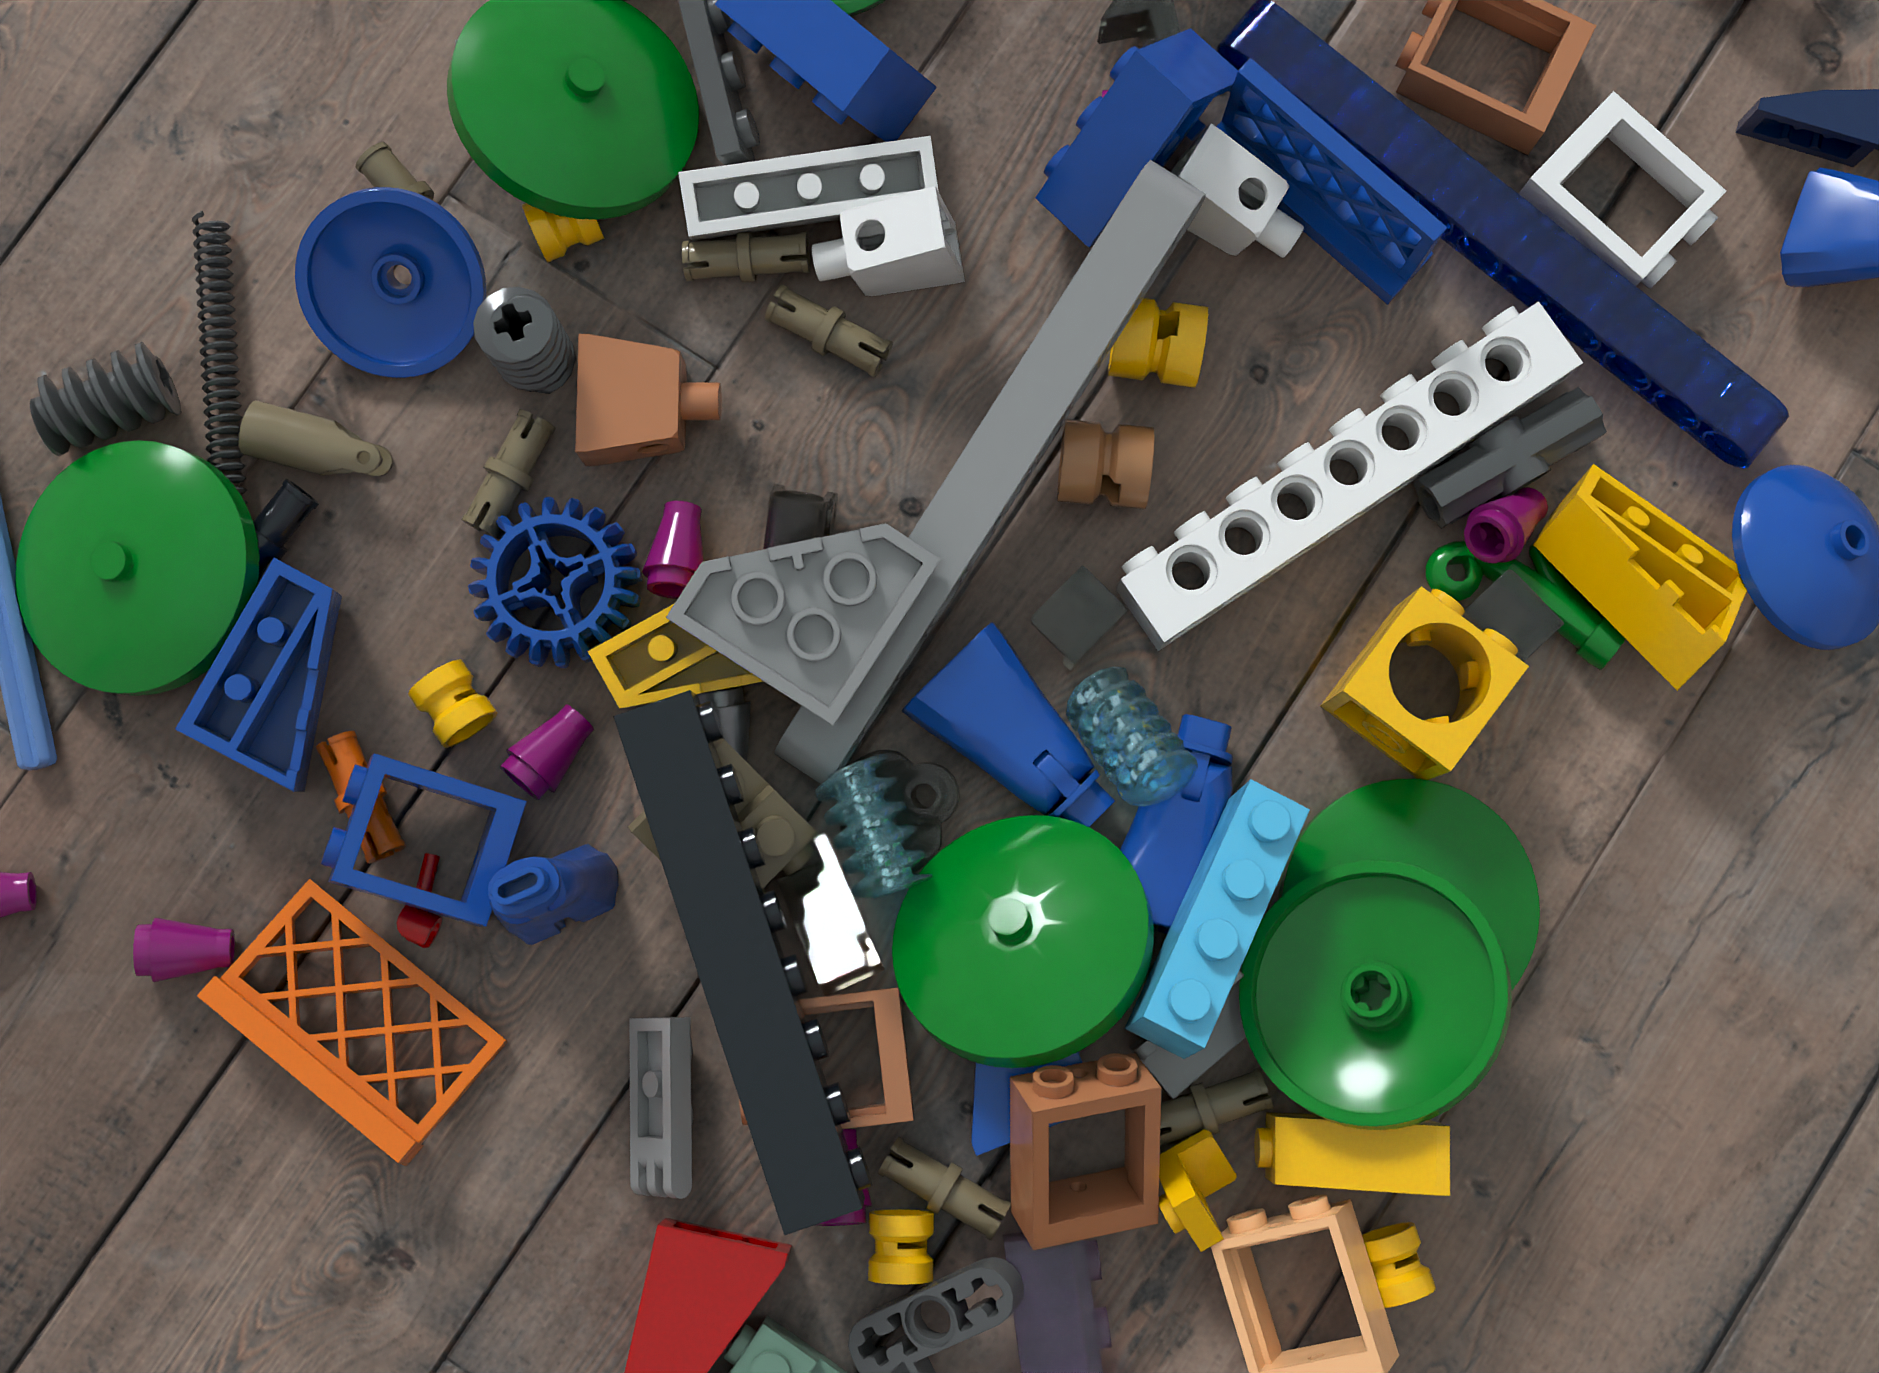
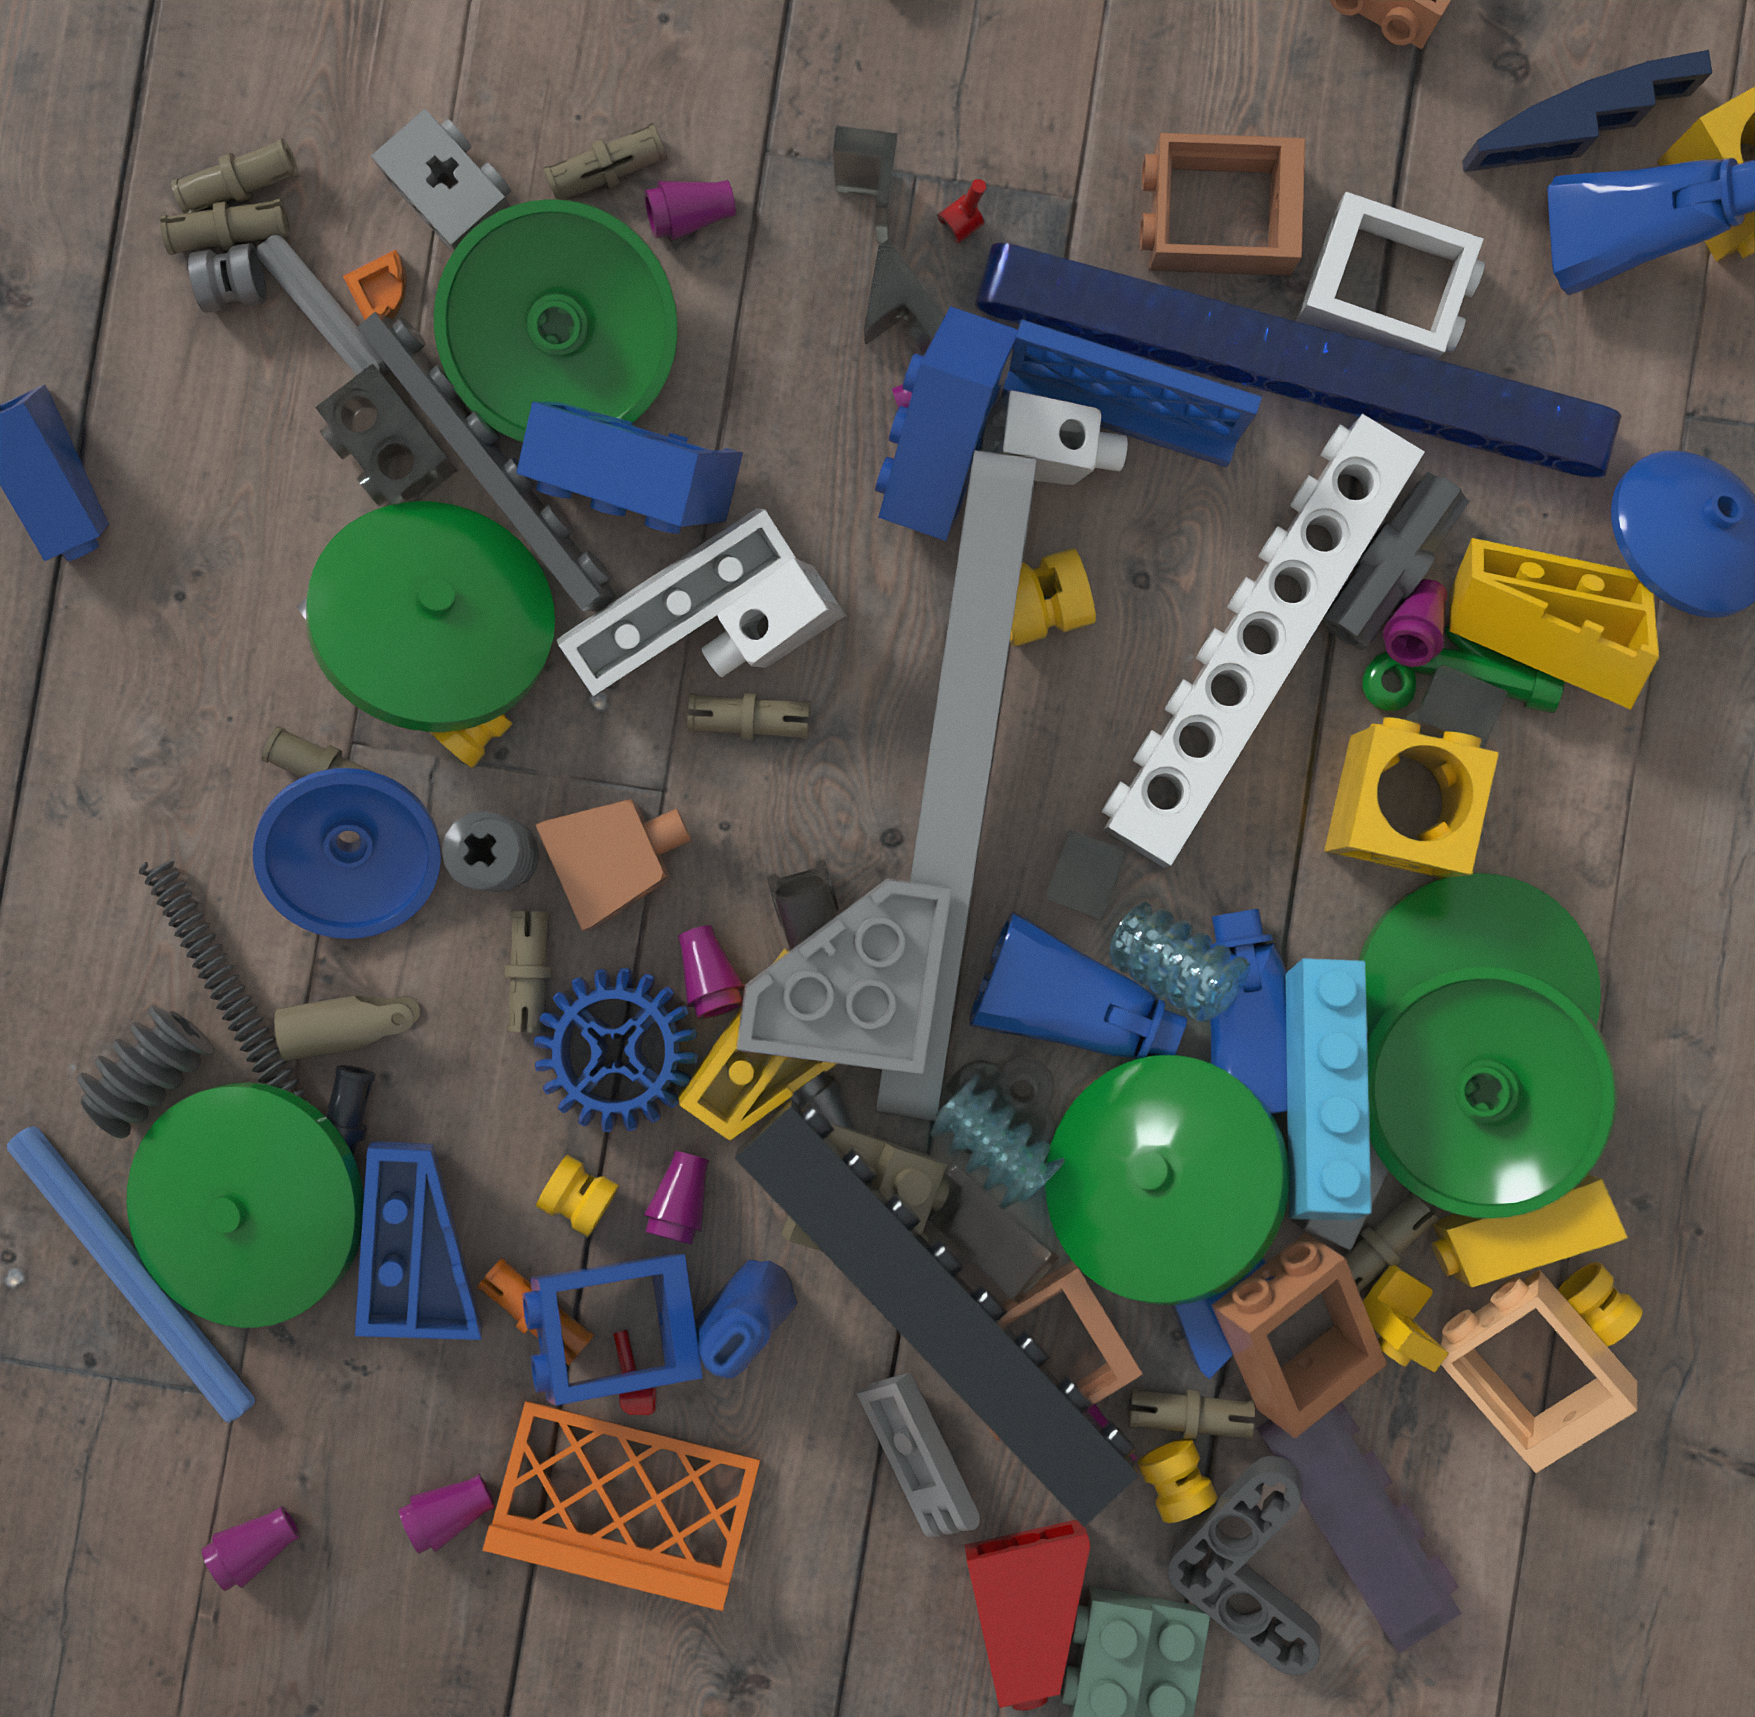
camera: 20 degrees left, 5 degrees up
(746, 256) = (647, 683): dark tan pin -> none
(1105, 464) = (1048, 728): medium nougat wheel -> none

